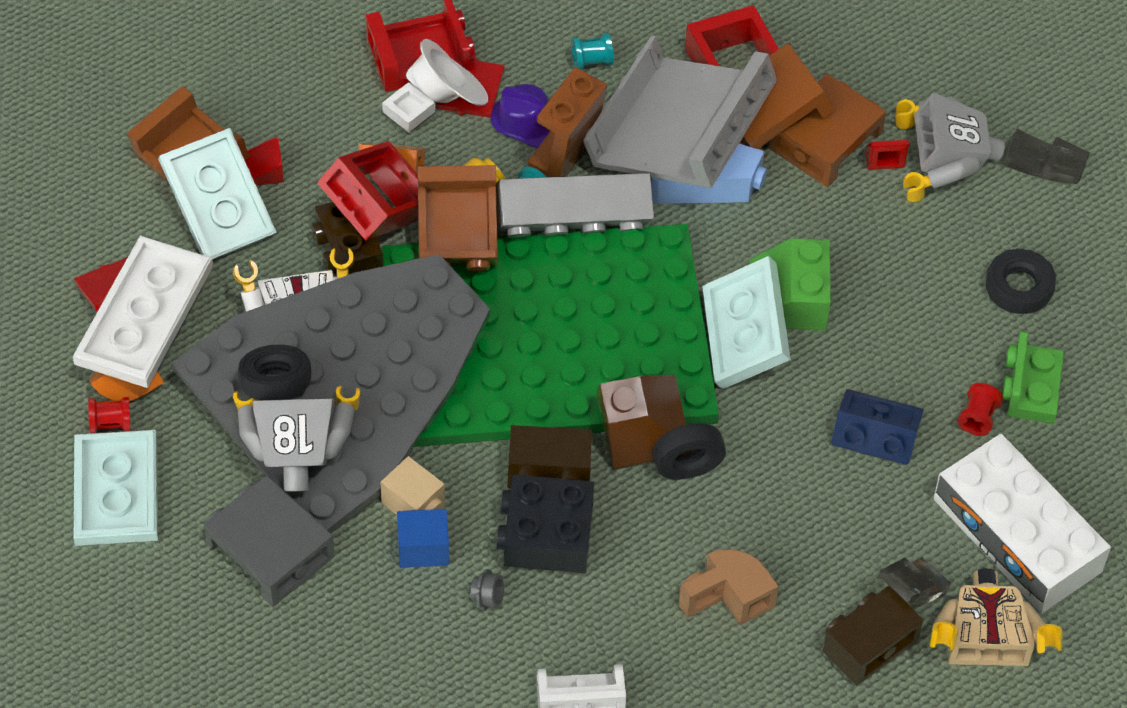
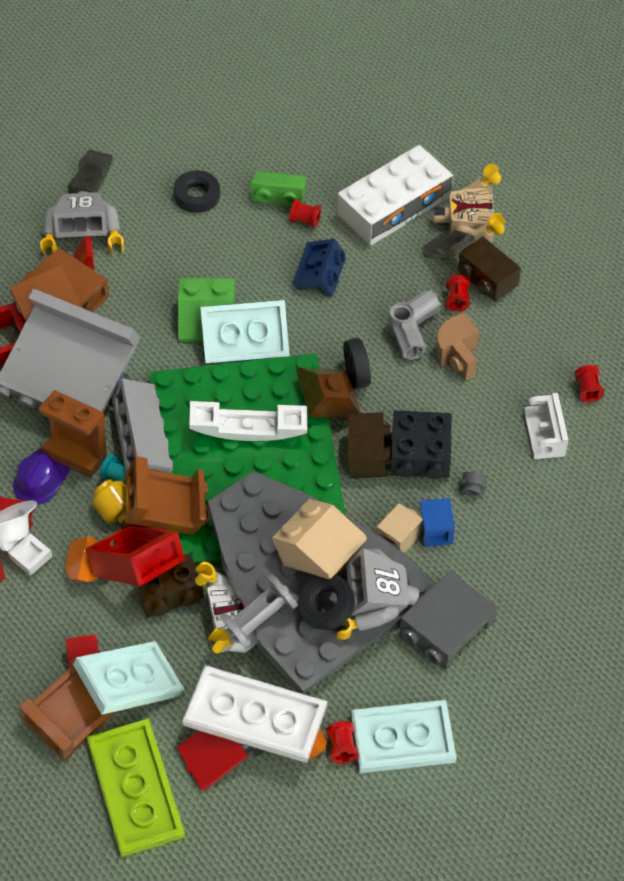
camera: 90 degrees left, 0 degrees up
(88, 216) = (135, 787): none -> lime tile
(286, 317) = (258, 611): none -> light grey hose
(358, 358) = (318, 539): none -> tan slope
(585, 312) = (248, 424): none -> white slope
(789, 535) = (404, 321): none -> light grey piece
(831, 596) = (457, 293): none -> red bush

